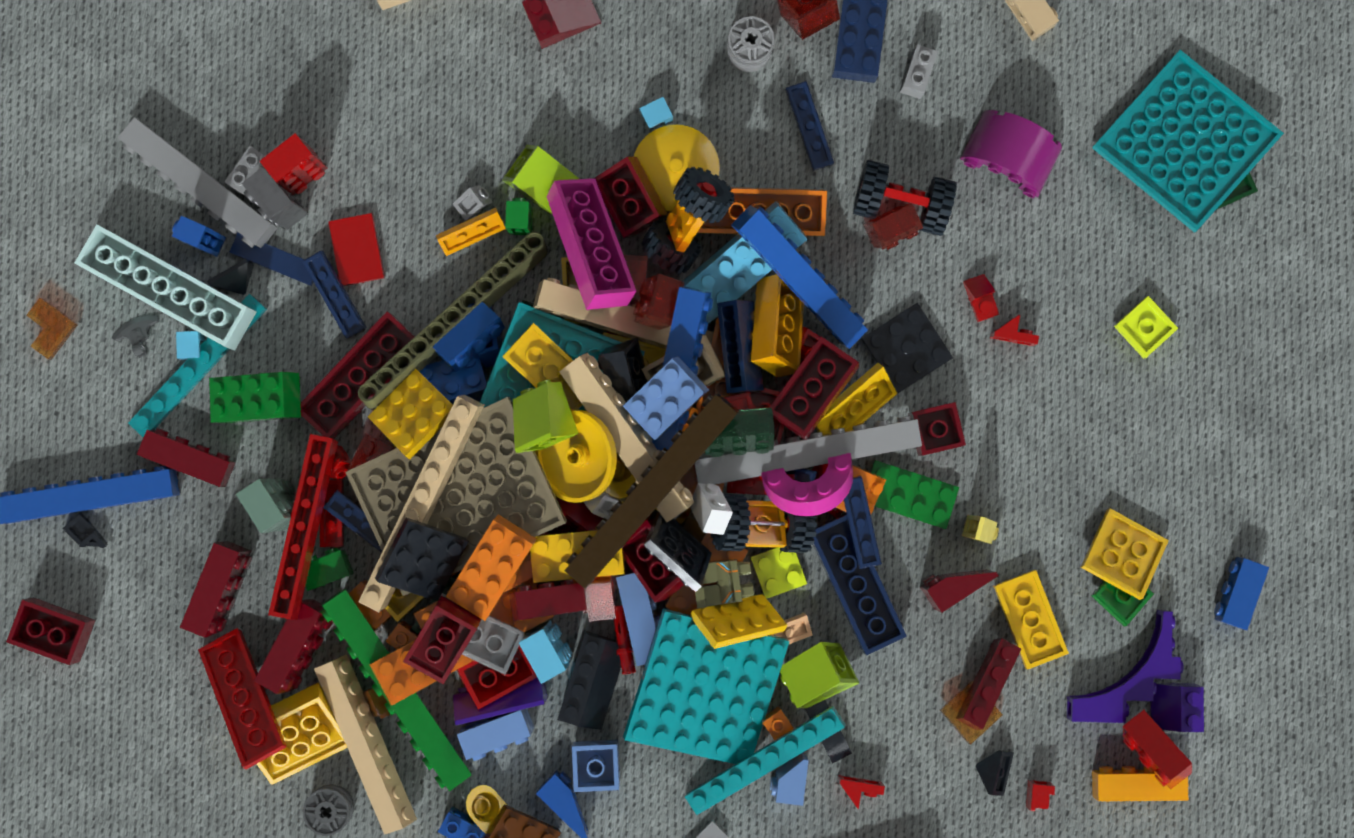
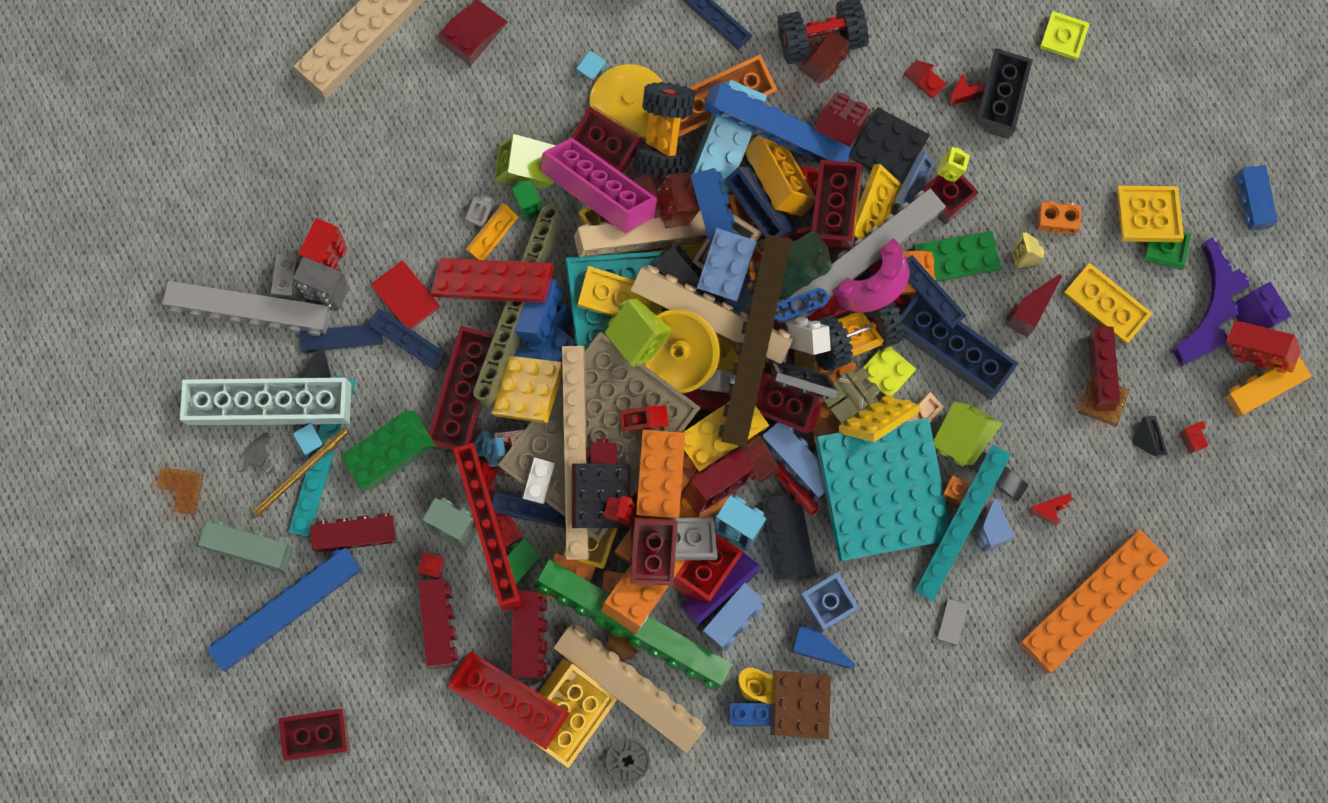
camera: 30 degrees left, 10 degrees down
(77, 418) = (247, 547): none -> sand green brick
(84, 532) = (298, 642): black slope -> none
(198, 236) = (273, 344): blue brick -> none
(204, 362) = (330, 444): none -> pearl gold bar
(241, 528) = (431, 566): none -> red brick
(352, 446) = (489, 448): none -> dark azure tile
(375, 509) = (538, 480): none -> white plate
(431, 585) = (620, 510): none -> red slope
(442, 282) = (492, 280): none -> red plate
(447, 517) = (602, 452): none -> dark red brick
(504, 506) = (644, 418): none -> red slope
(736, 478) = (815, 305): none -> blue beam
(872, 300) = (842, 119): none -> dark red brick
(910, 398) = (915, 179): none -> medium blue plate
(954, 406) = (953, 164): none -> neon yellow brick
(1030, 513) = (1059, 223): none -> orange brick
(1049, 356) = (1003, 93): none -> black slope

